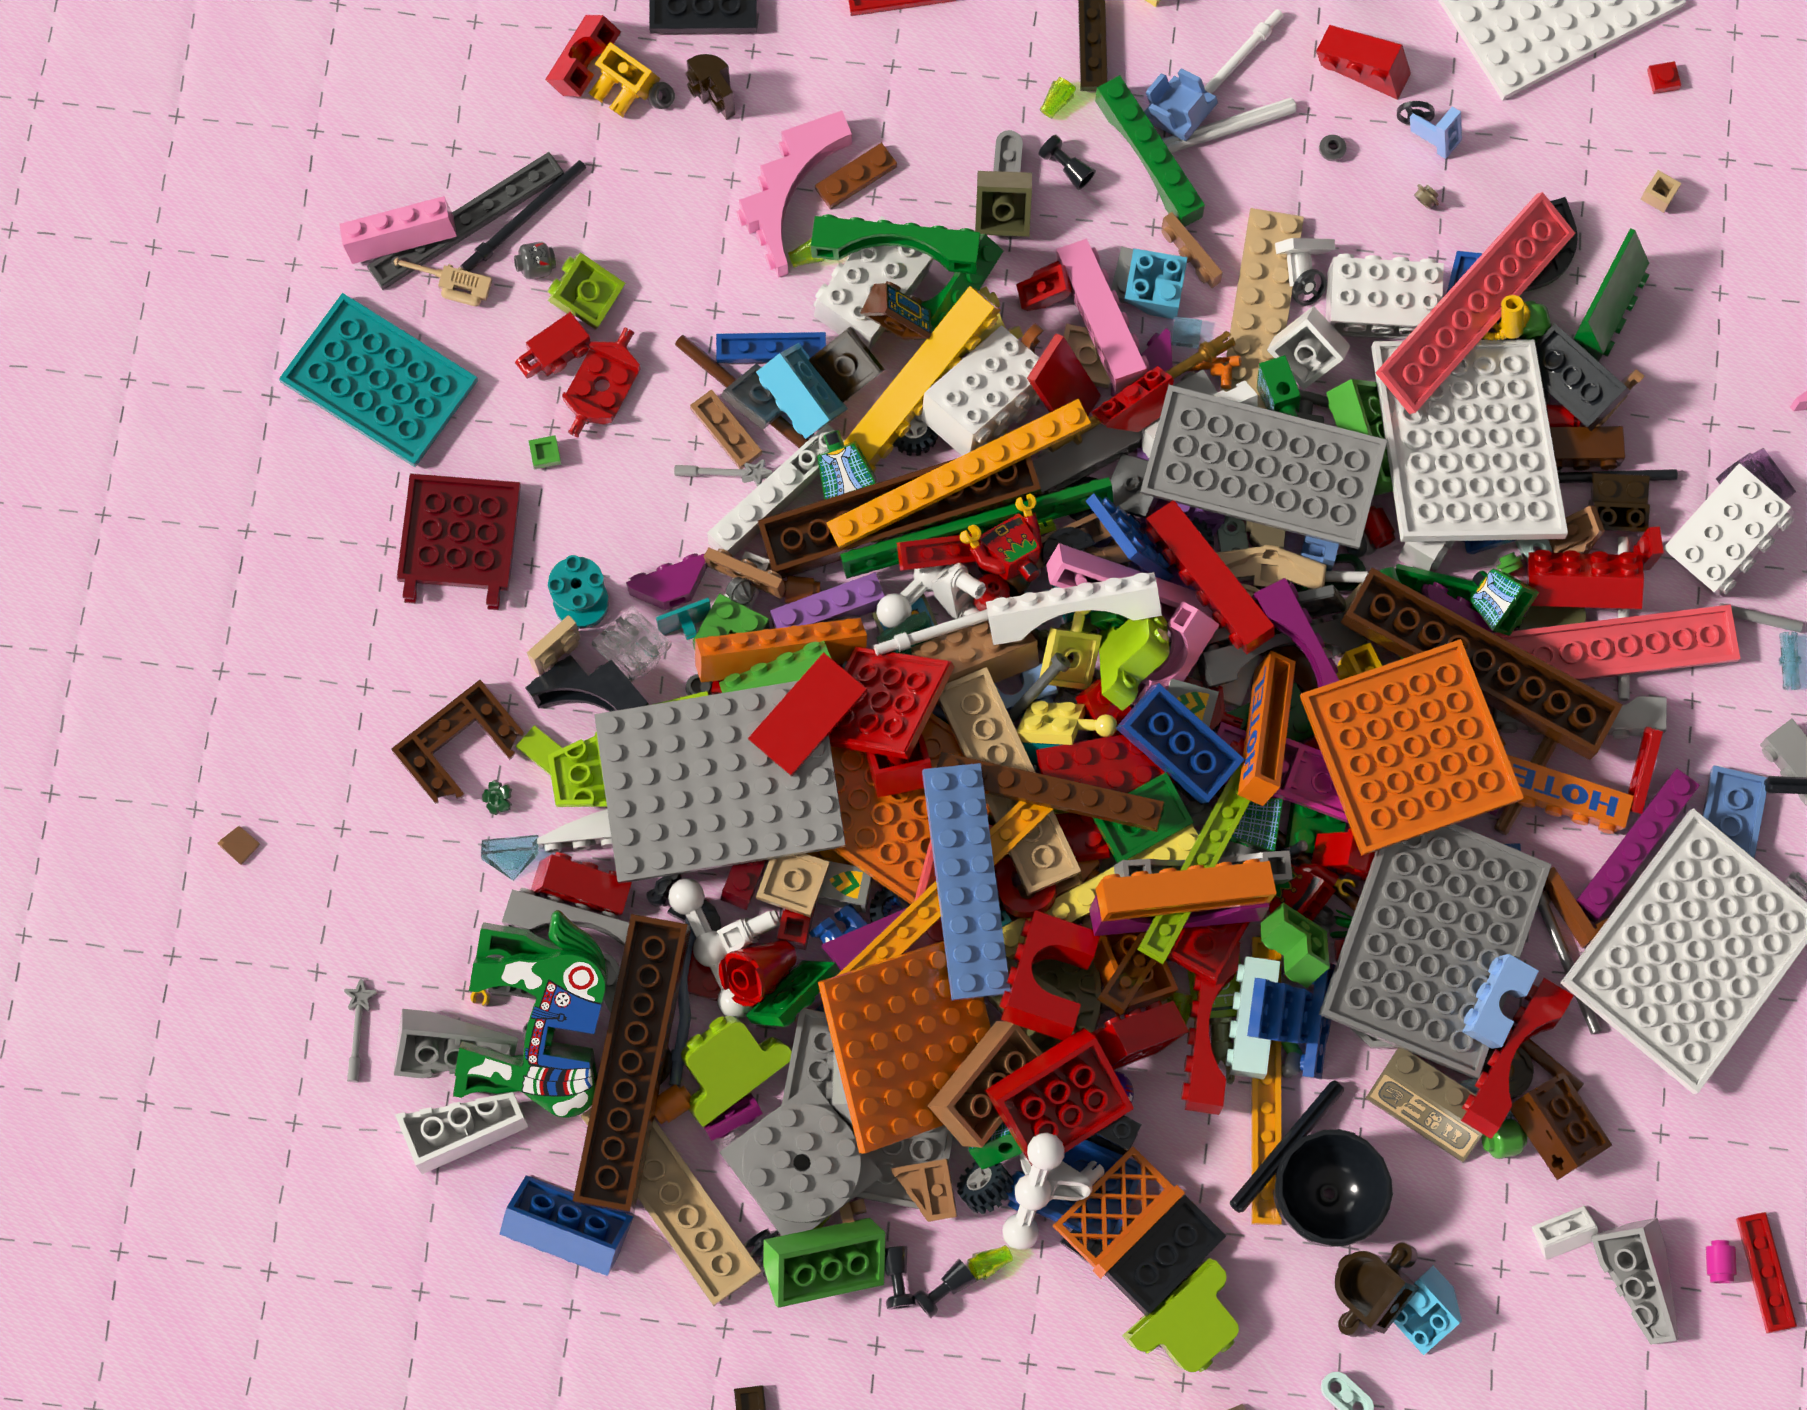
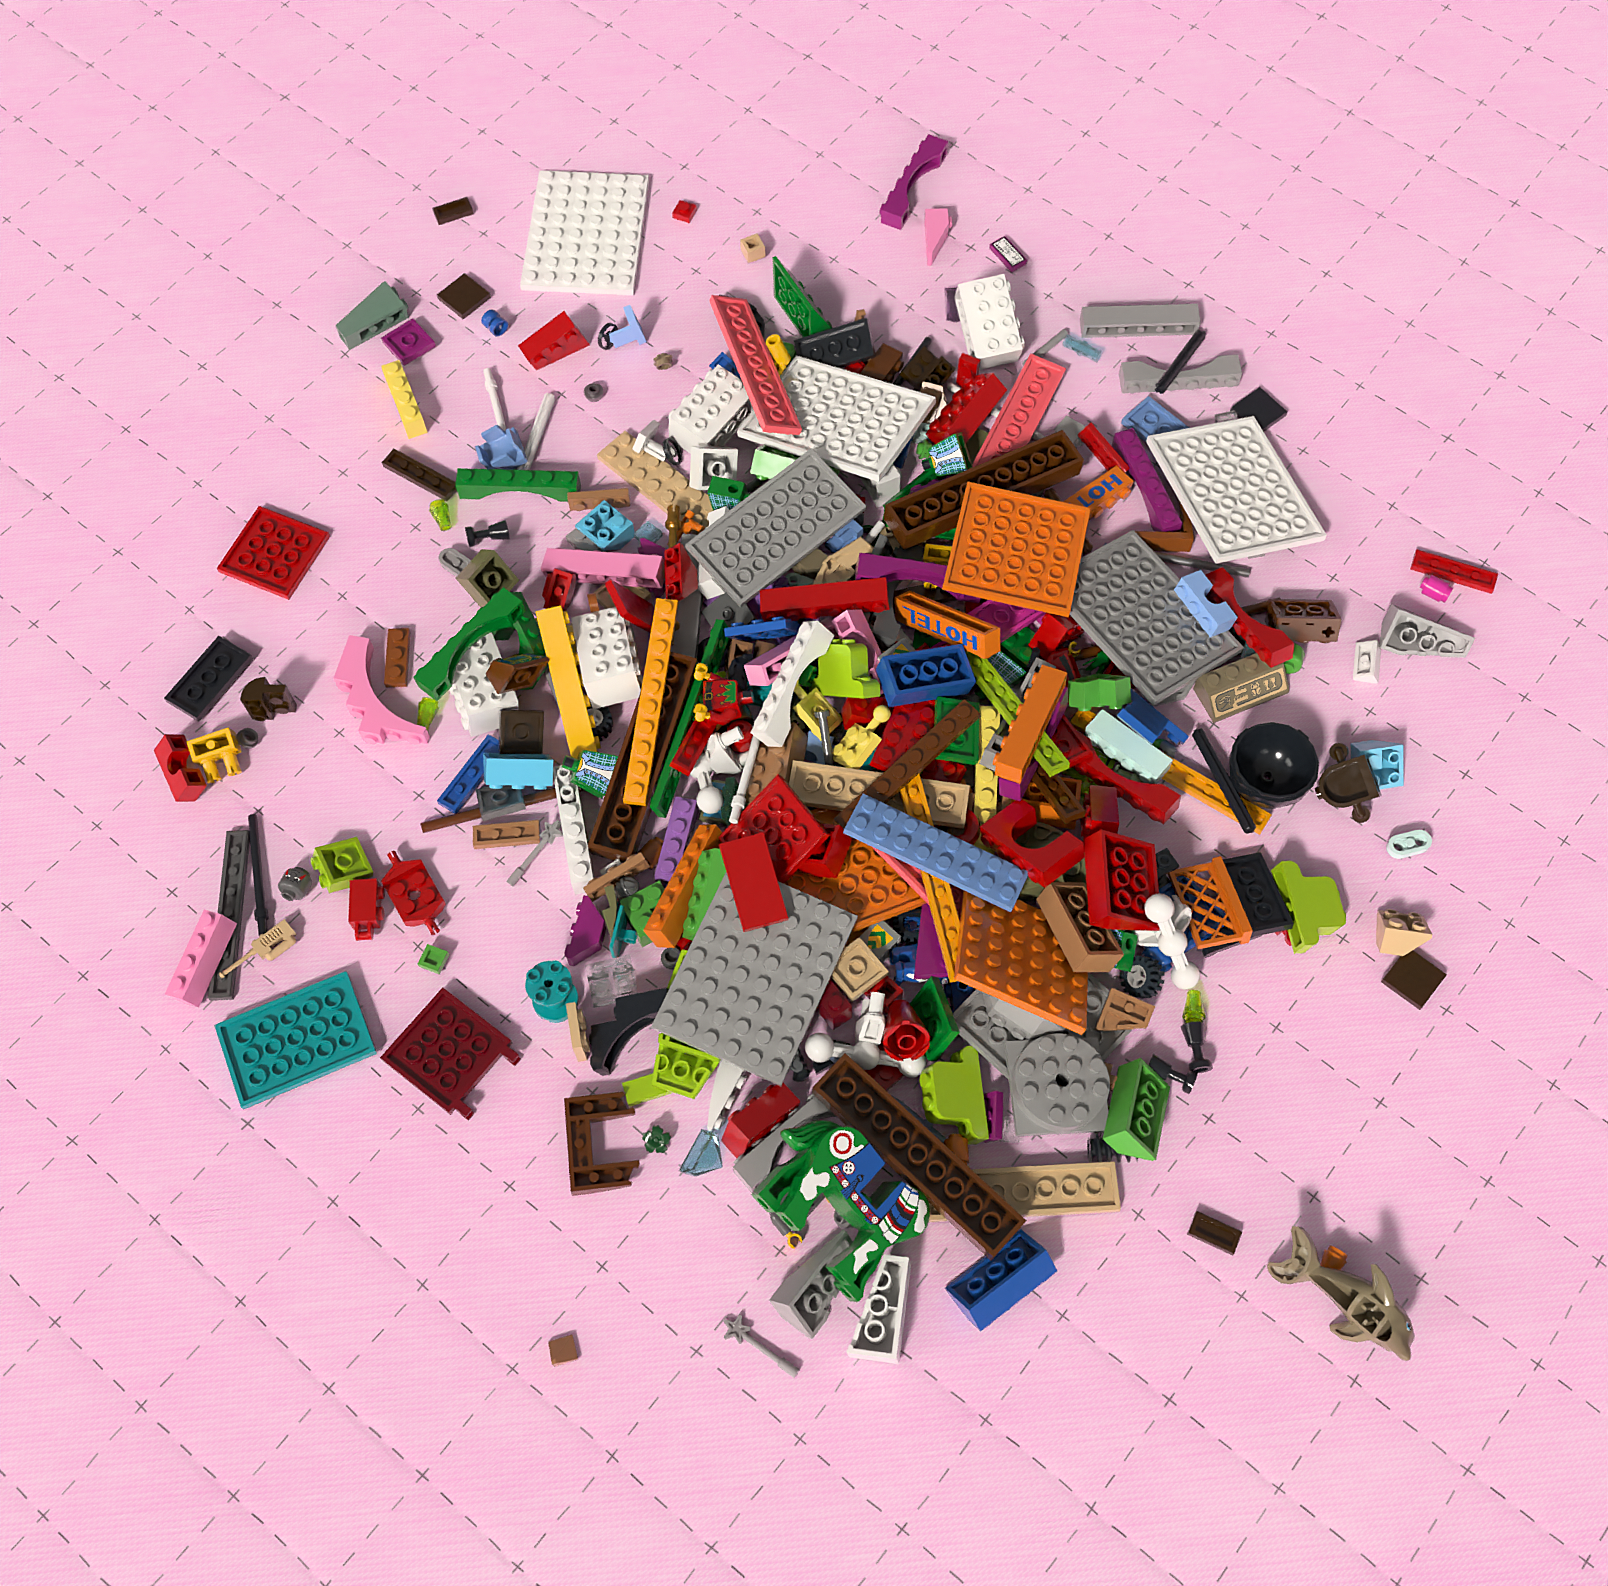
camera: 55 degrees left, 10 degrees down
(714, 585) = (611, 913): none -> olive slope

